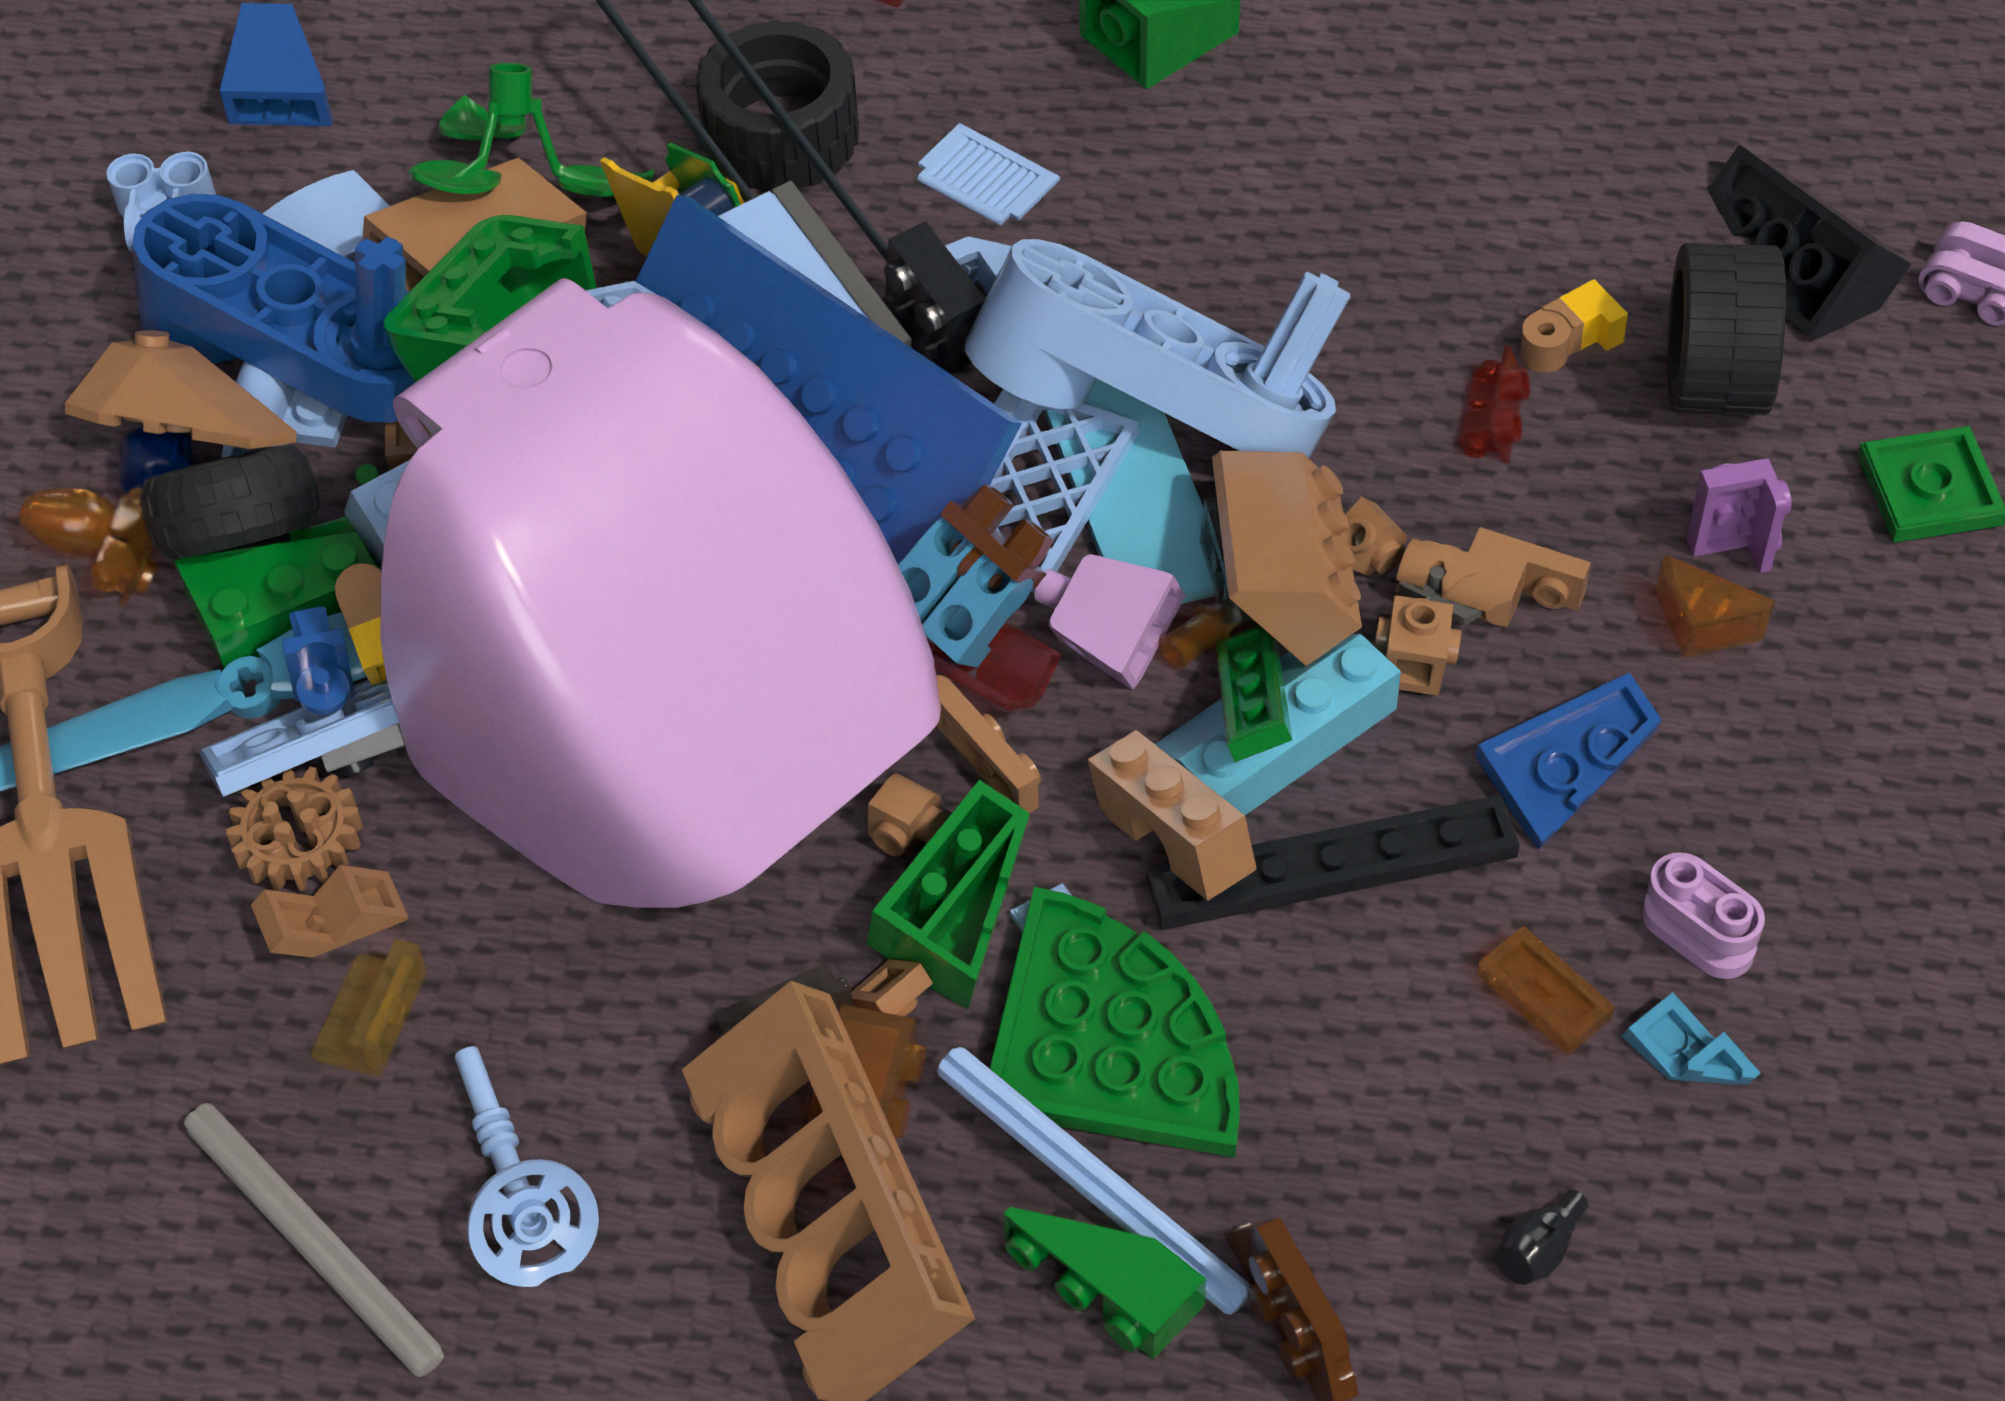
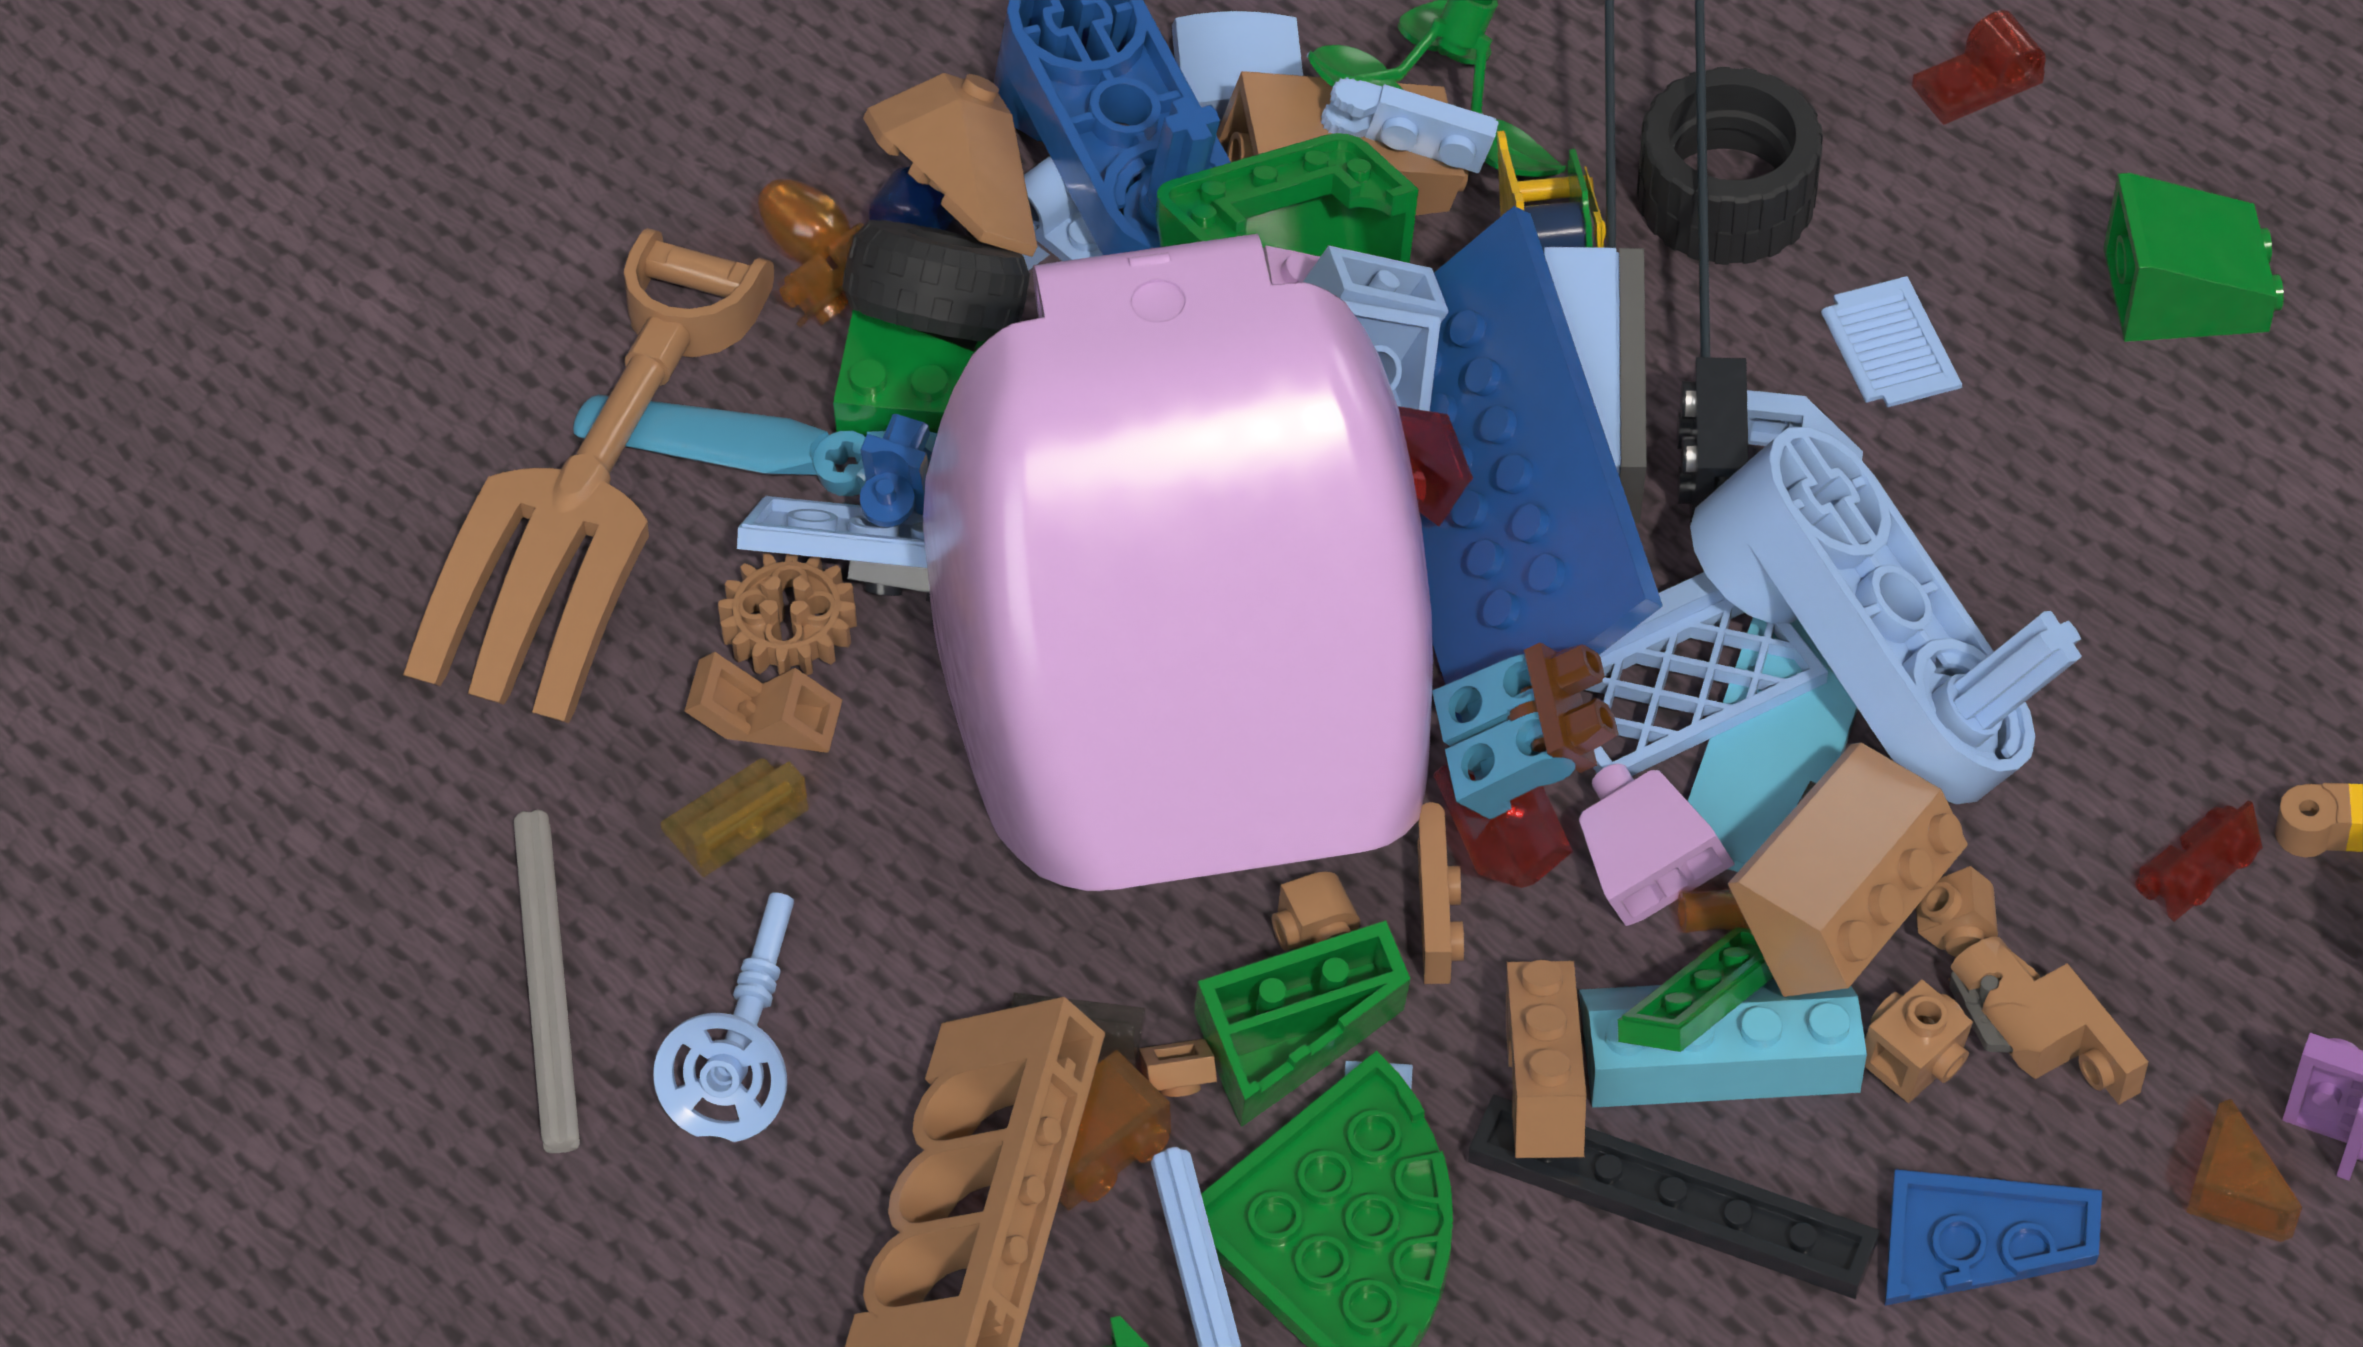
camera: 35 degrees right, 0 degrees up
(526, 188) = (1410, 123): none -> light blue hinge

